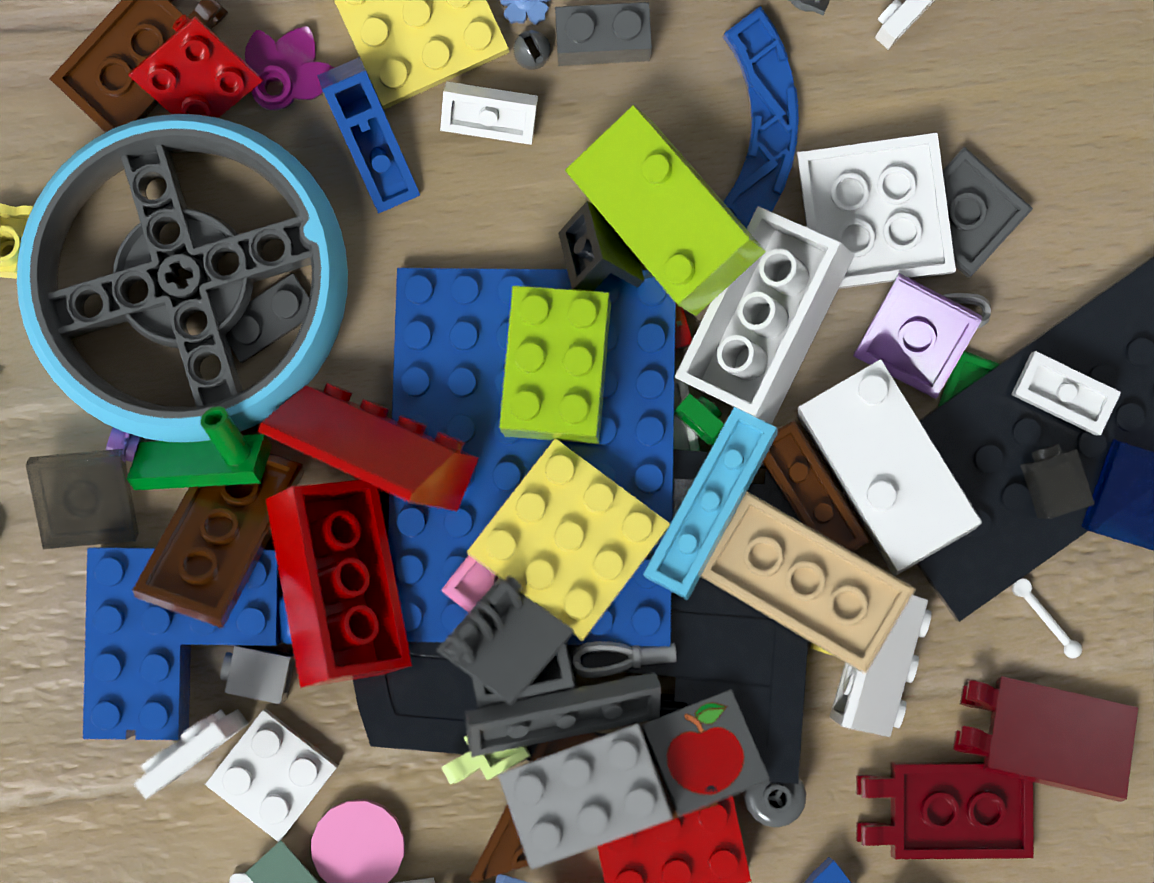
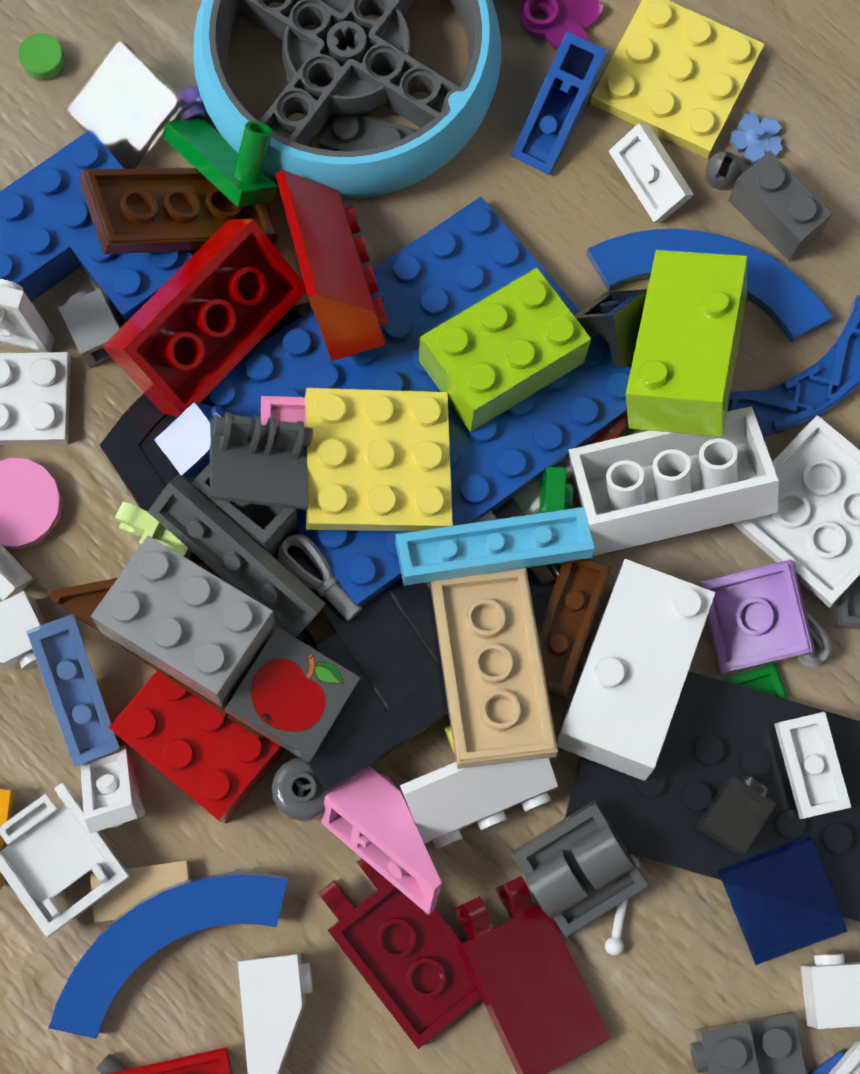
camera: 55 degrees right, 10 degrees down
(432, 675) = (188, 439): none -> brick
(655, 93) = (769, 282): none -> blue tile
(853, 761) = (378, 827): none -> bright pink slope
(999, 632) = (579, 869): none -> dark grey plate

